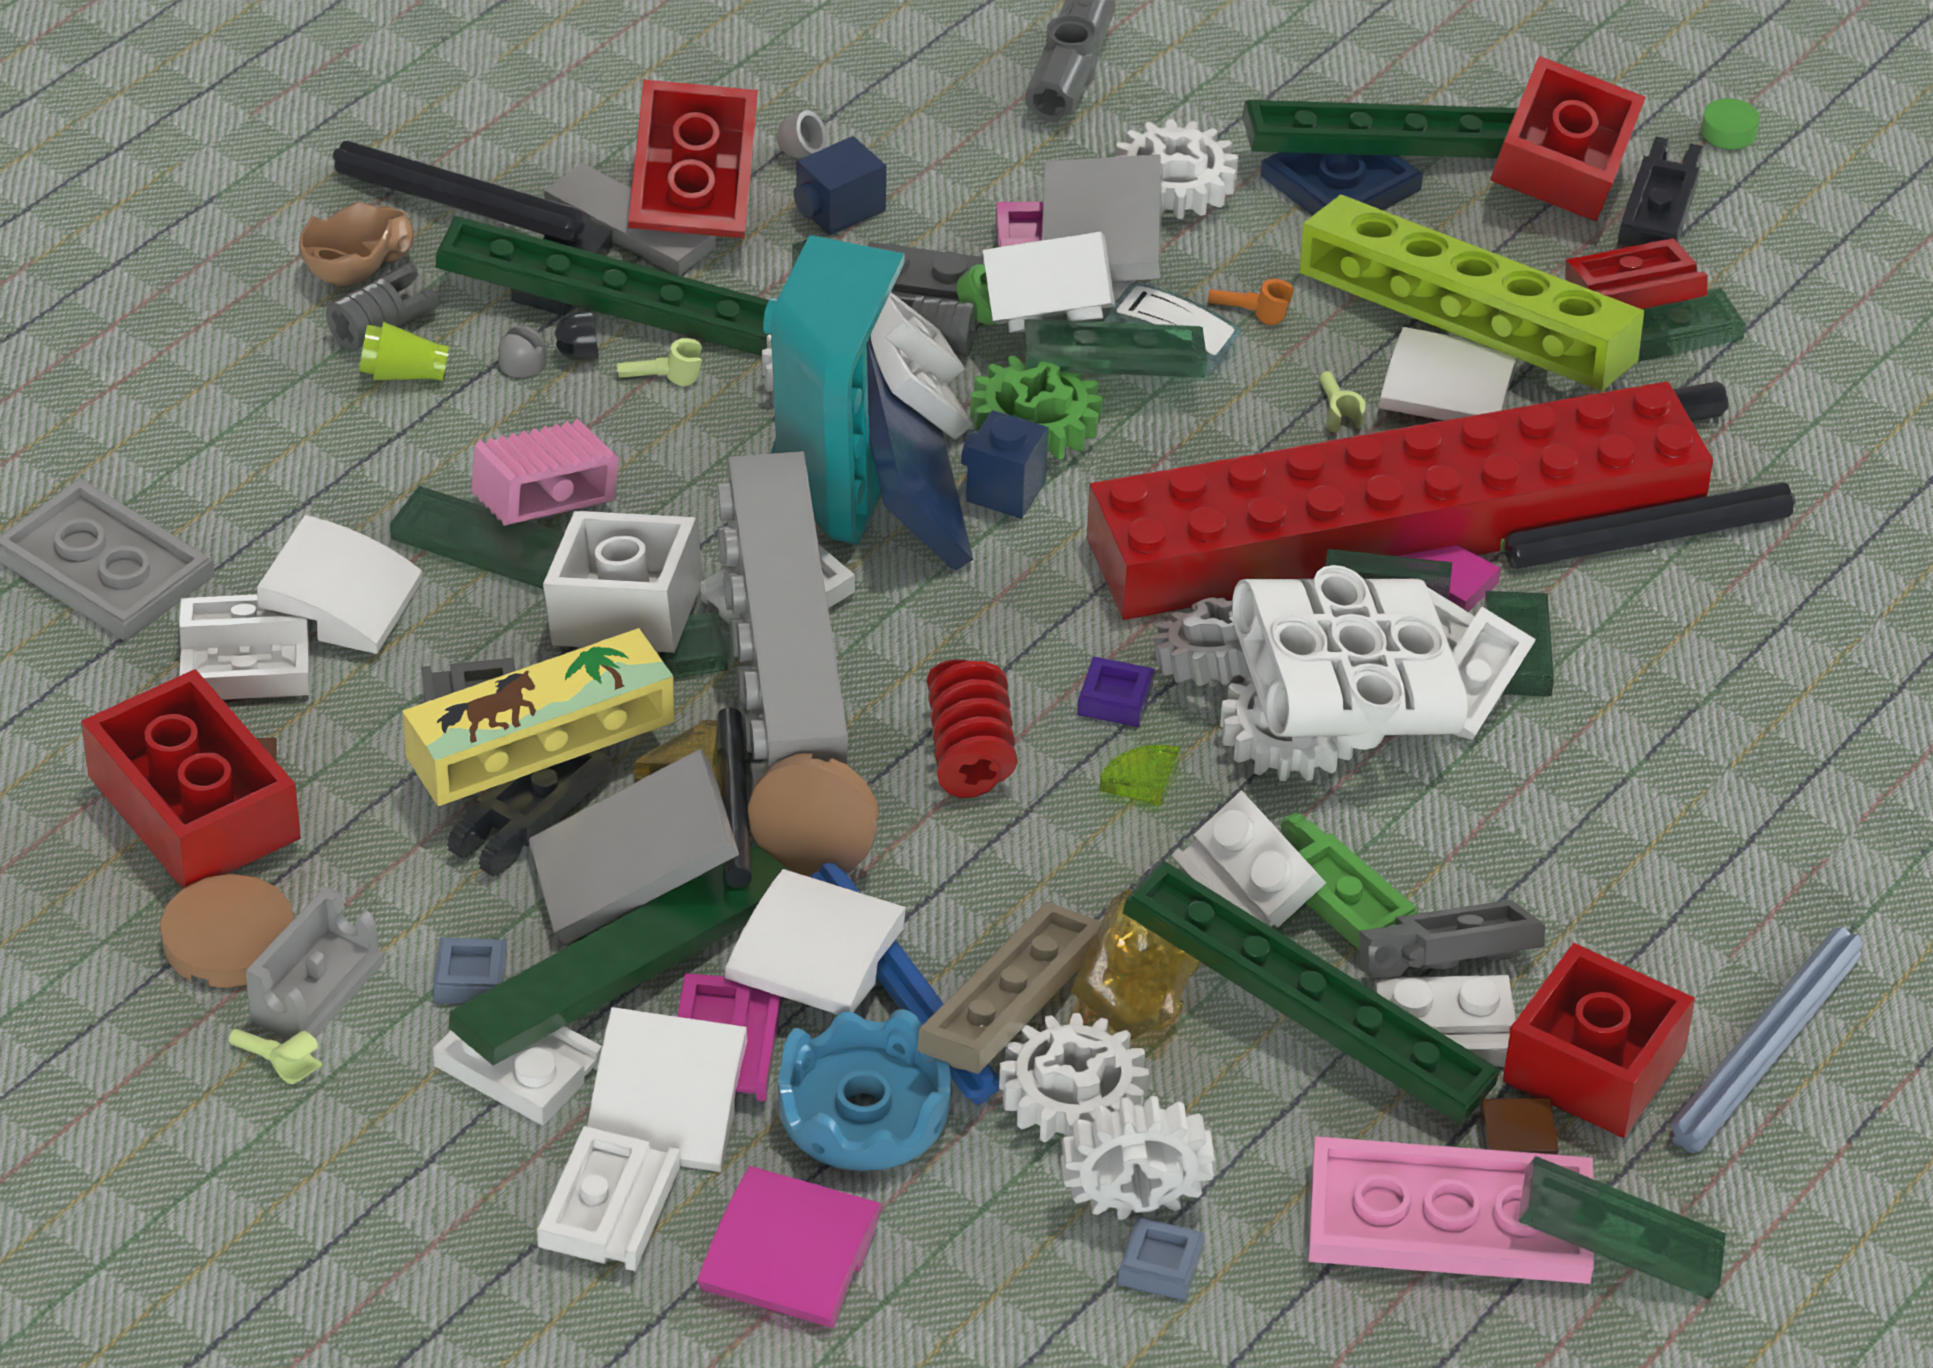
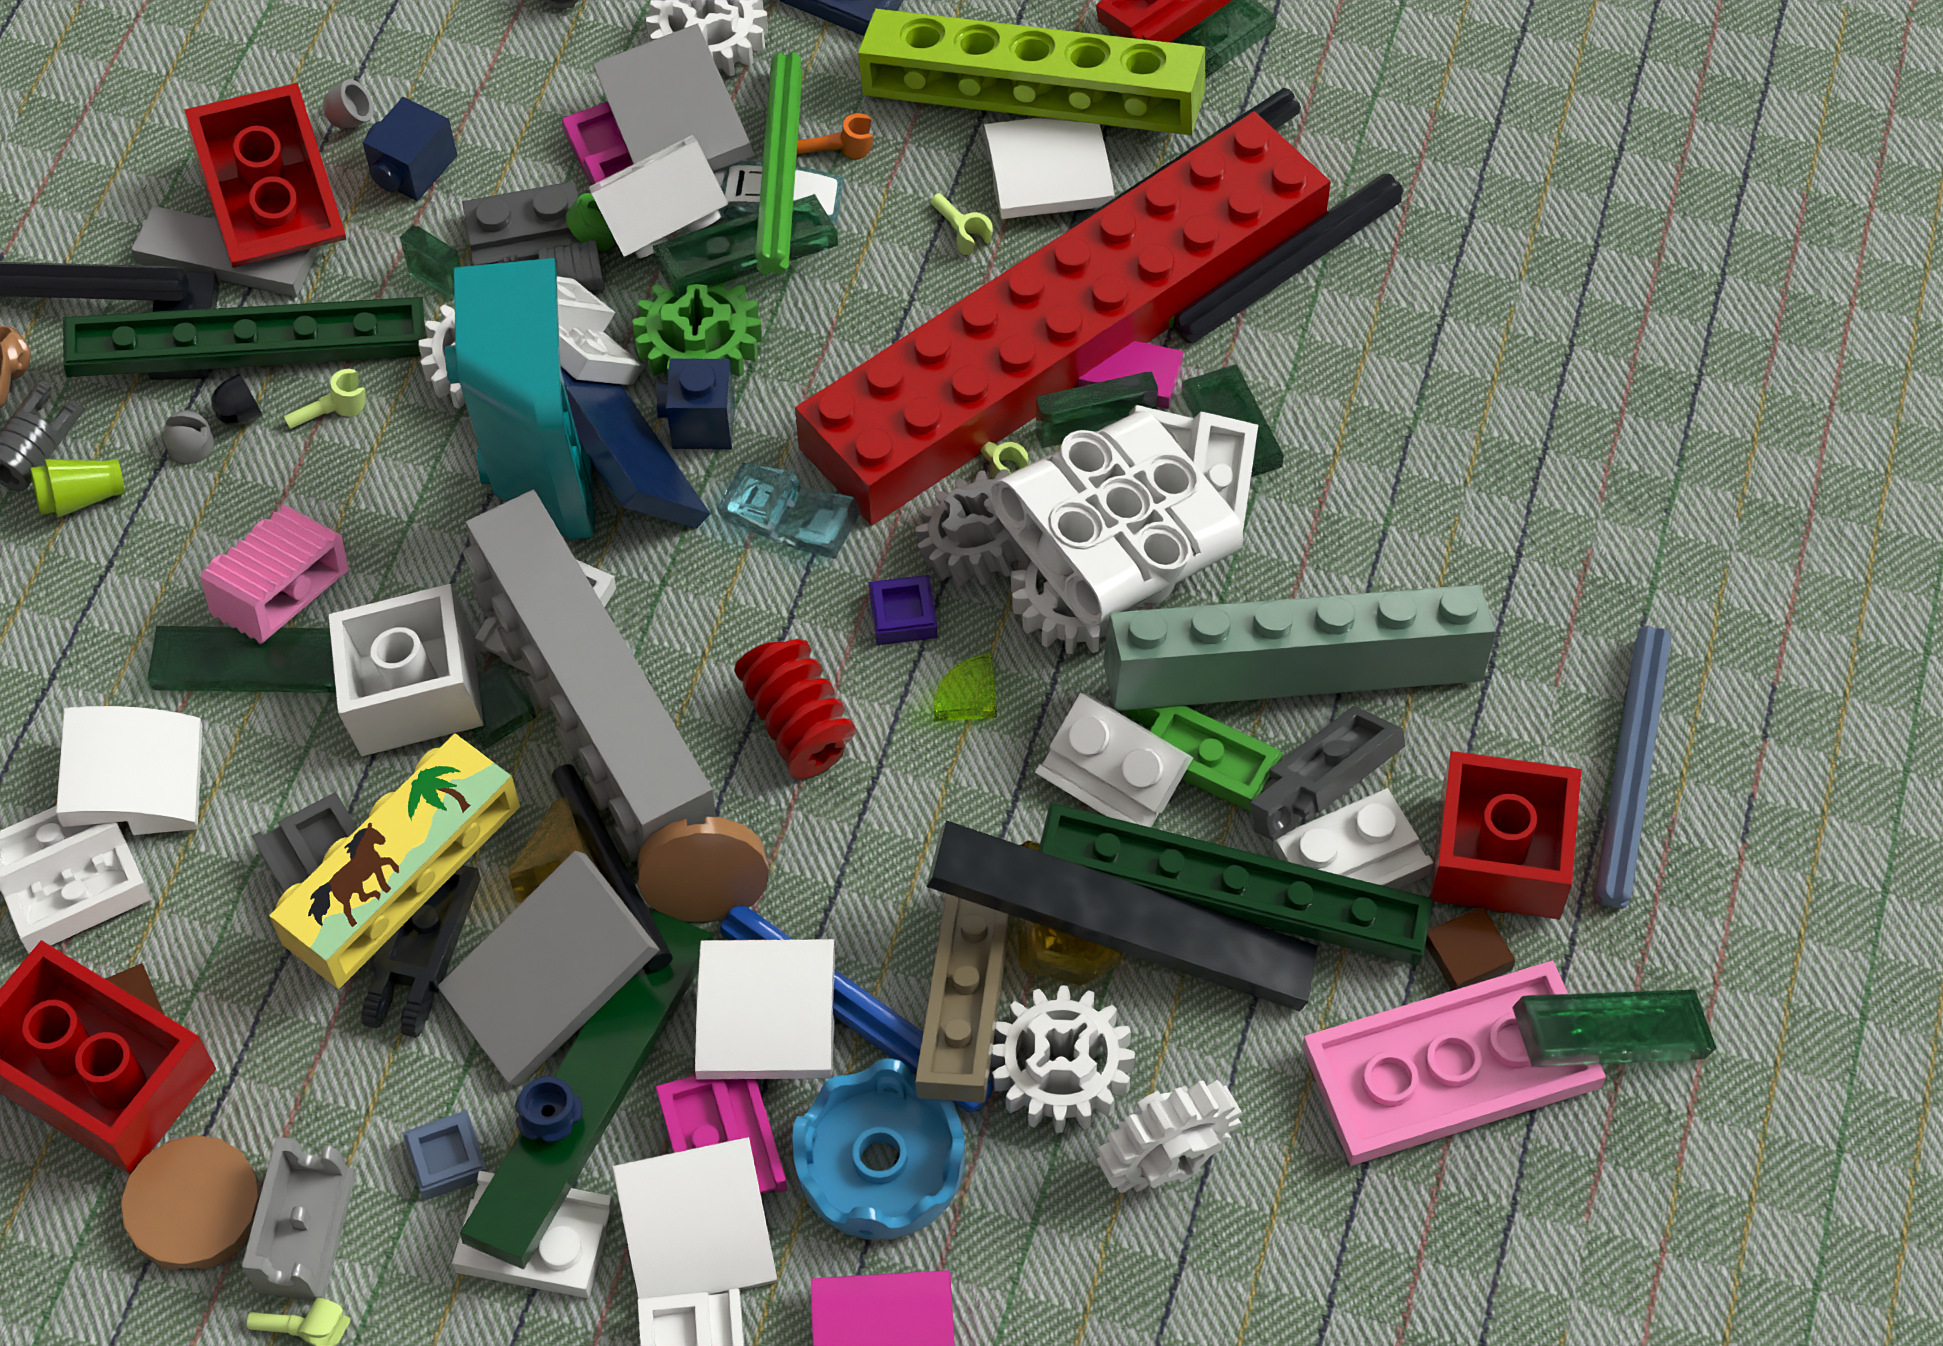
camera: 20 degrees left, 15 degrees up
(575, 943) = (545, 1094): none -> dark blue plate
(1042, 578) = (781, 510): none -> clear light blue slope
(1161, 1258) = (1220, 1216): sand blue tile -> none
(1180, 290) = (779, 164): none -> bright green axle
(1188, 977) = (1122, 916): none -> black tile
(1476, 824) = (1297, 647): none -> sand green brick

